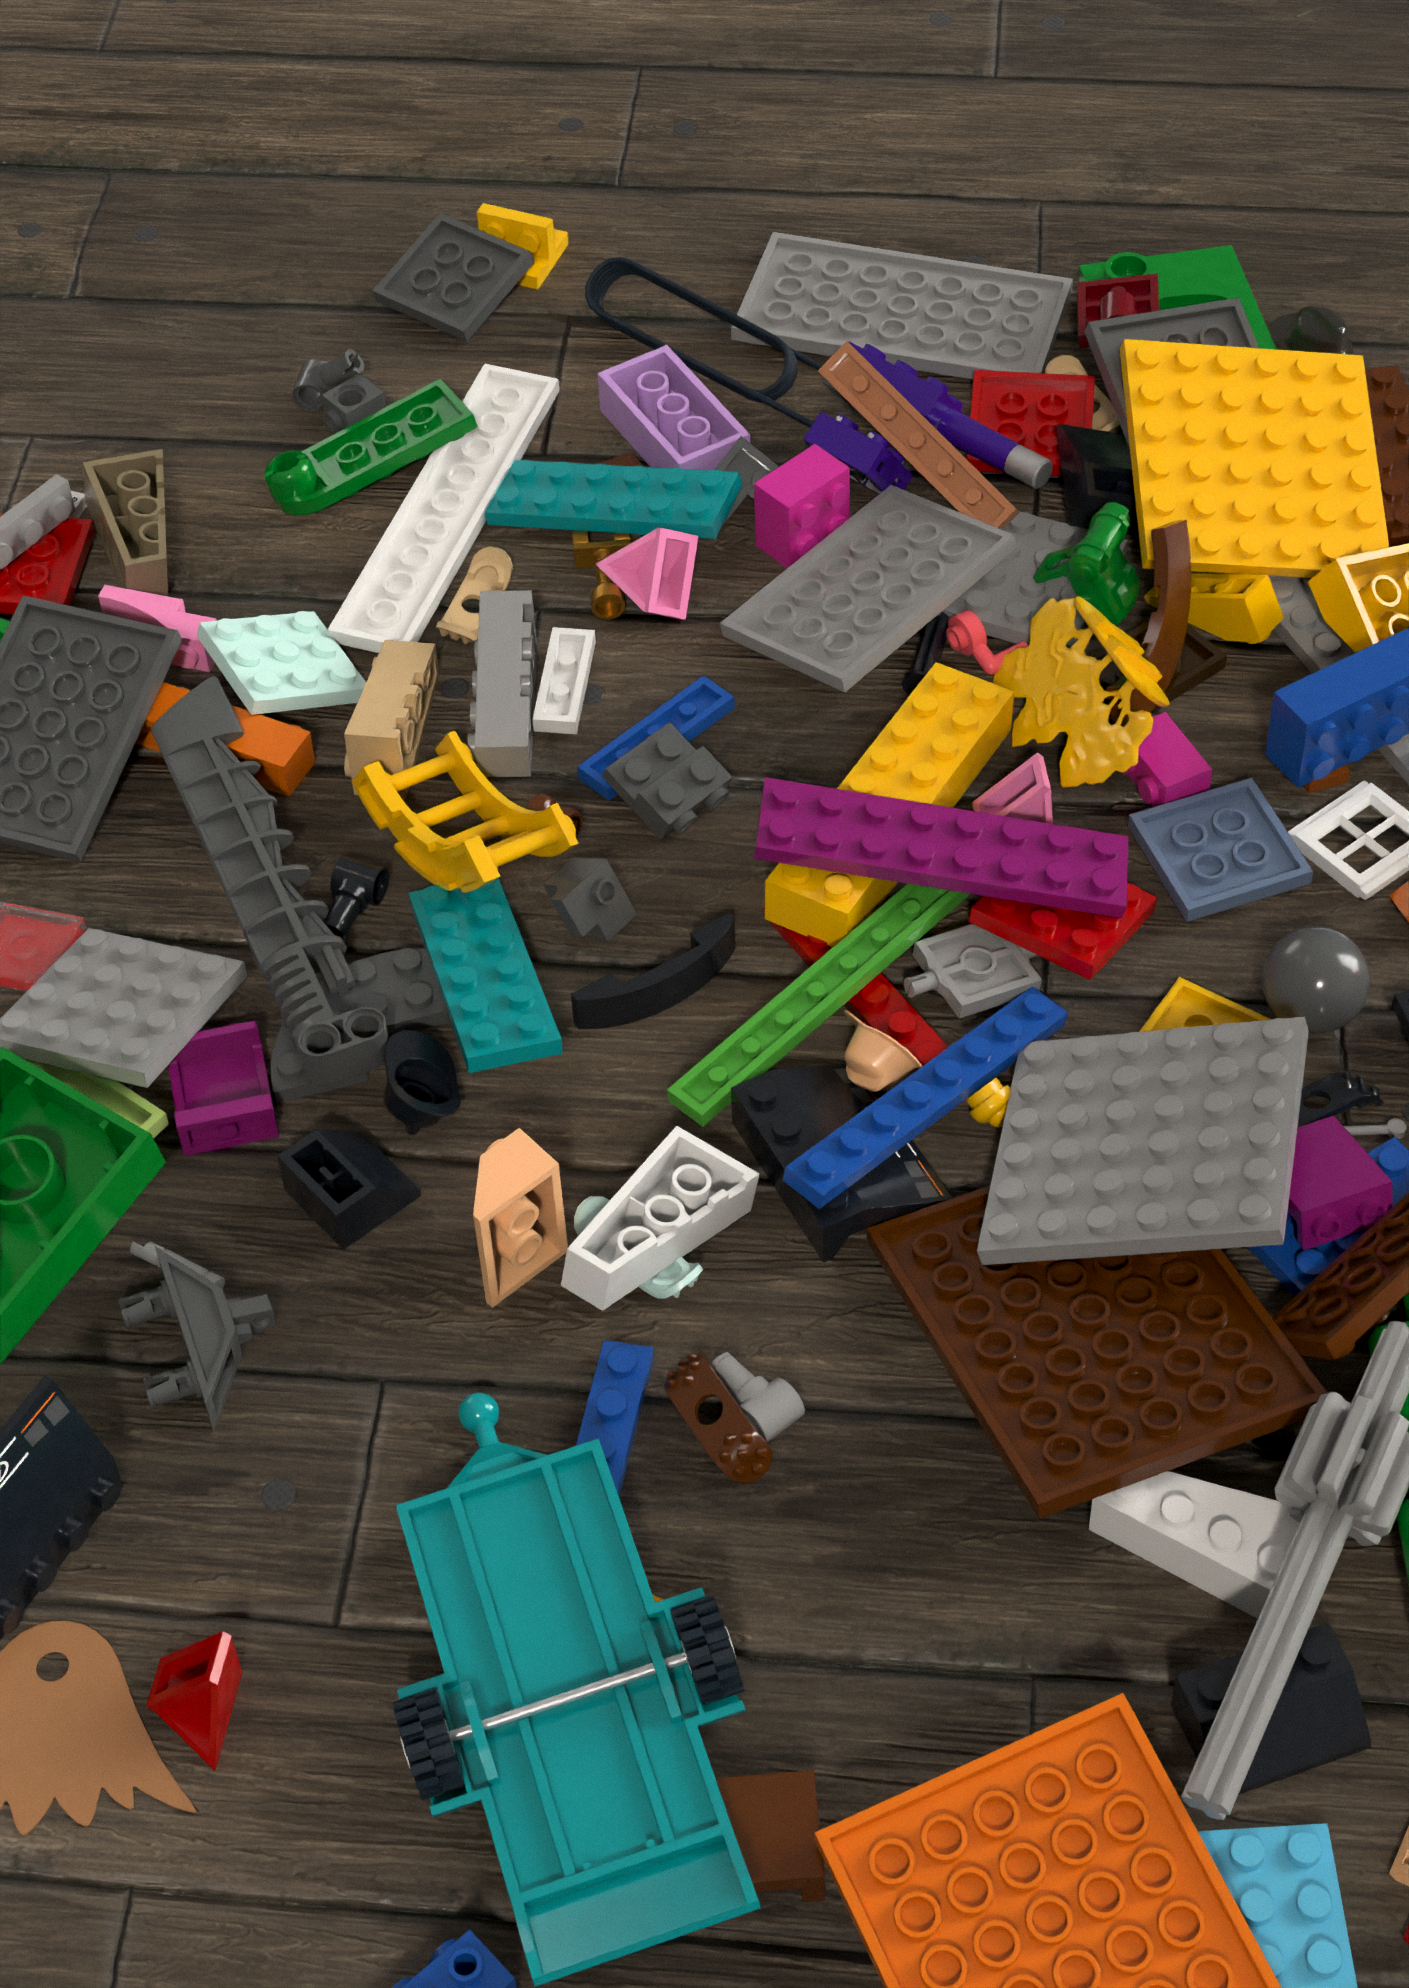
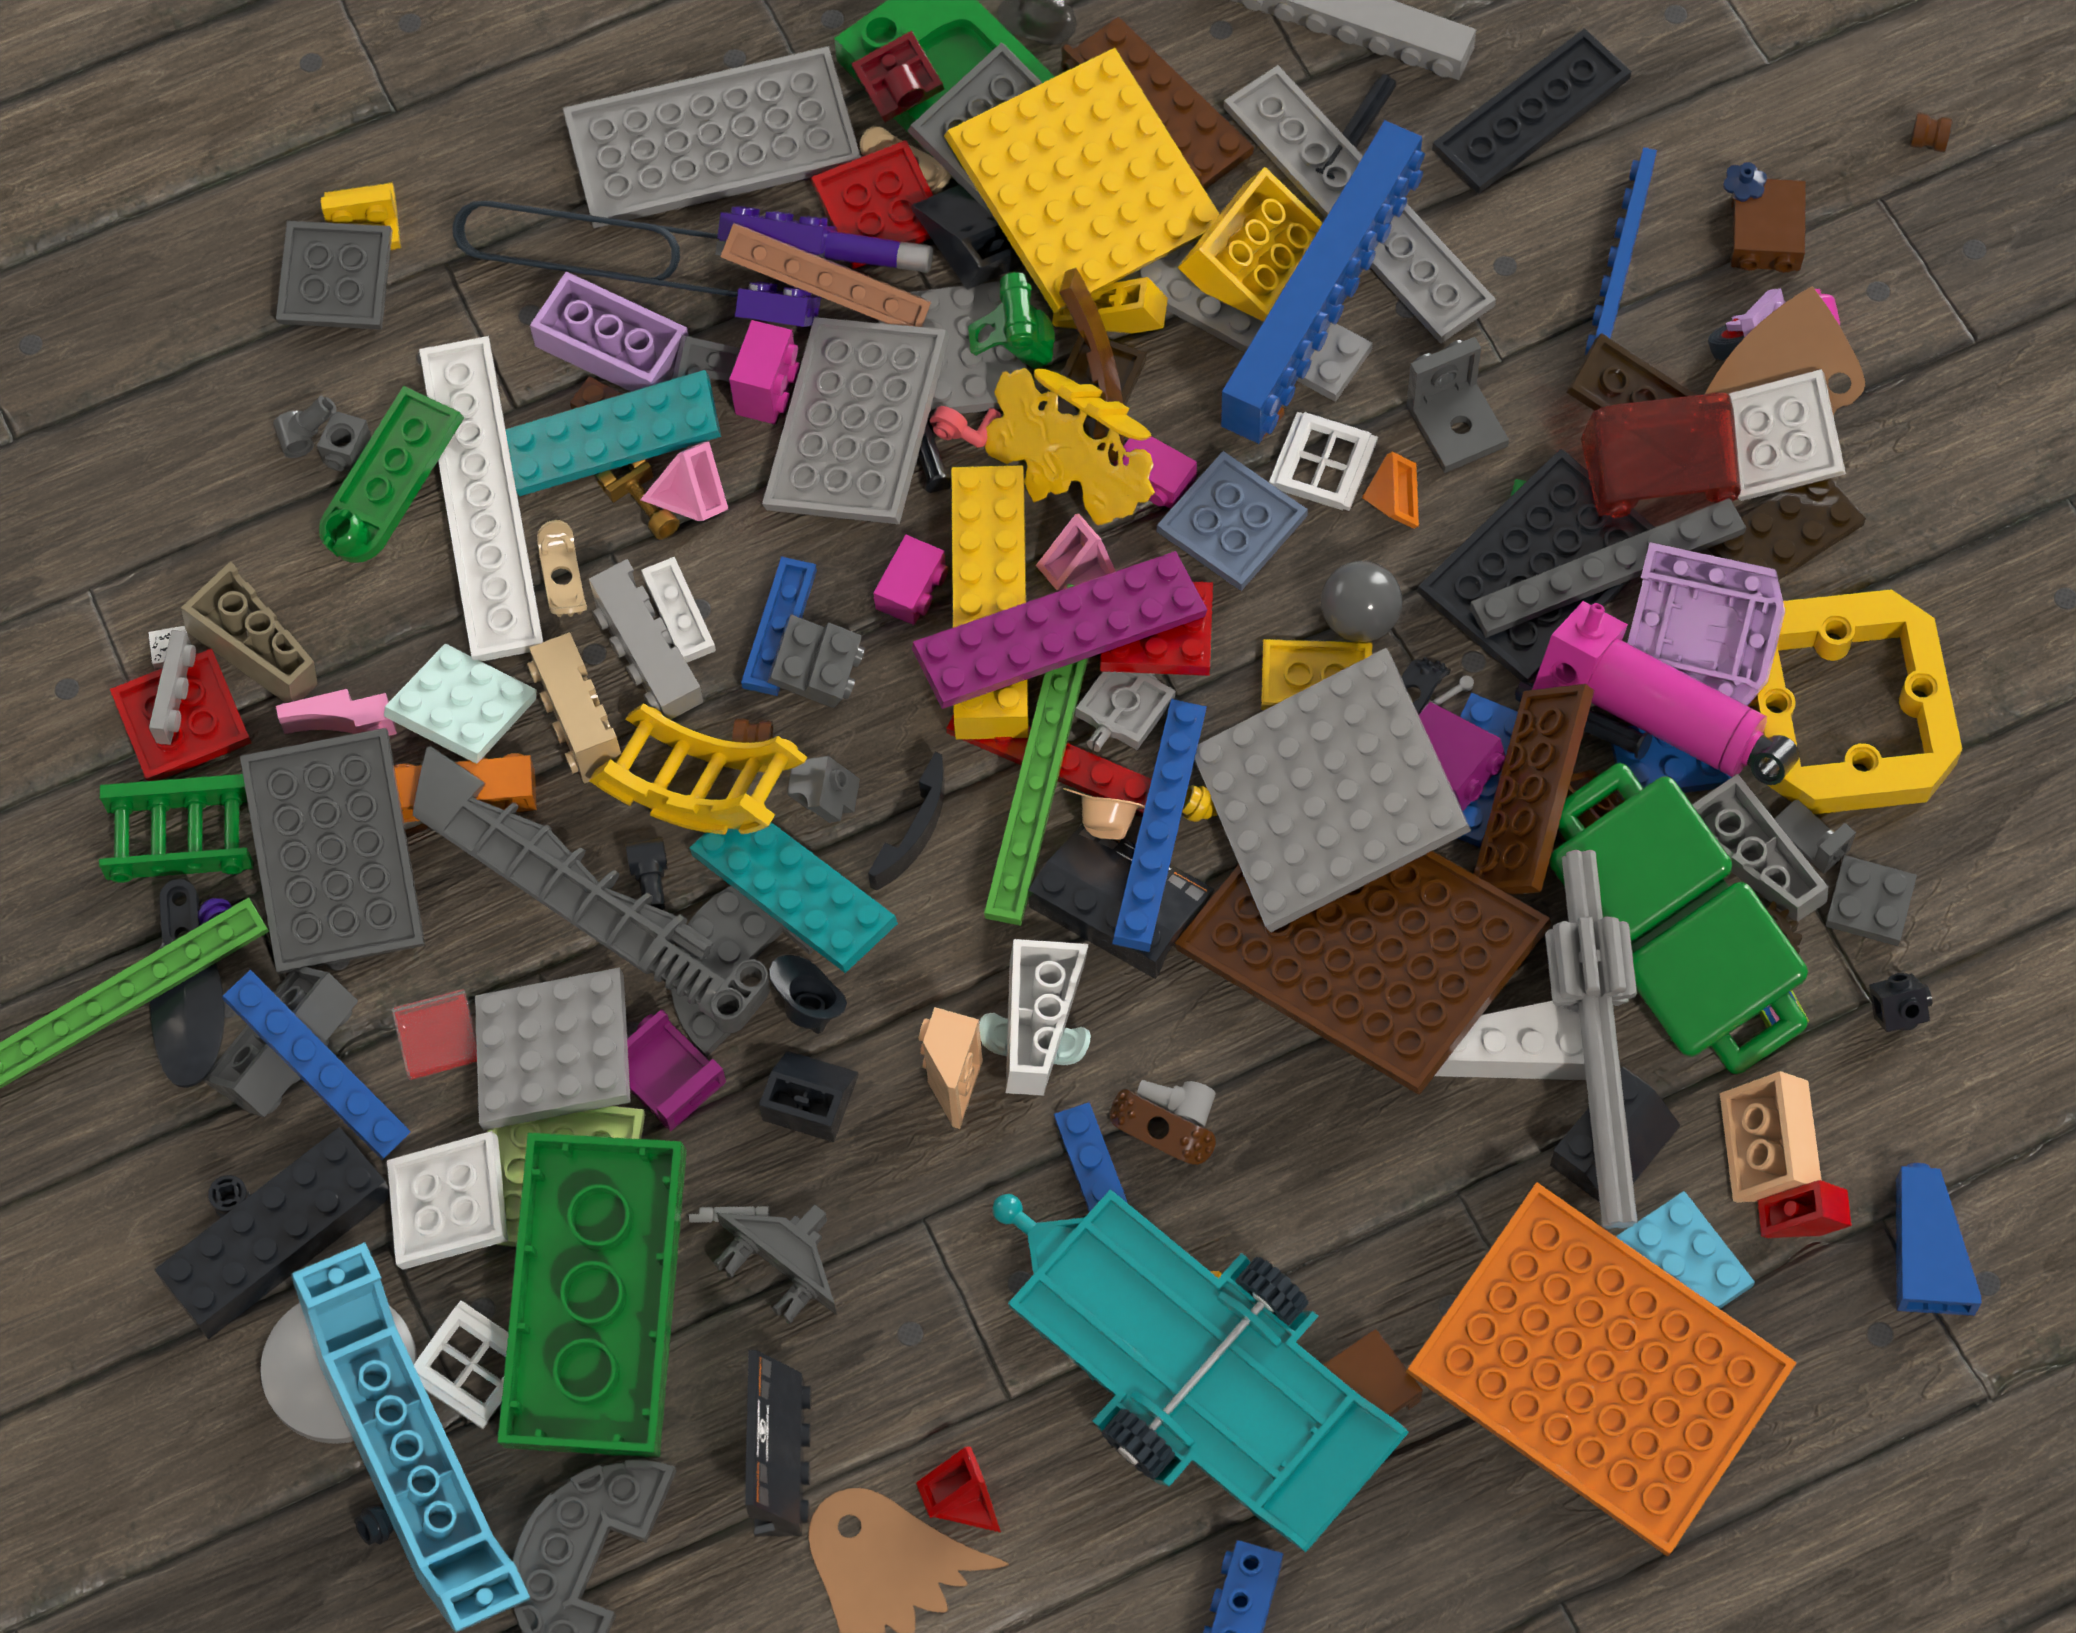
camera: 30 degrees left, 15 degrees up
(822, 749) = (910, 580): none -> dark pink brick

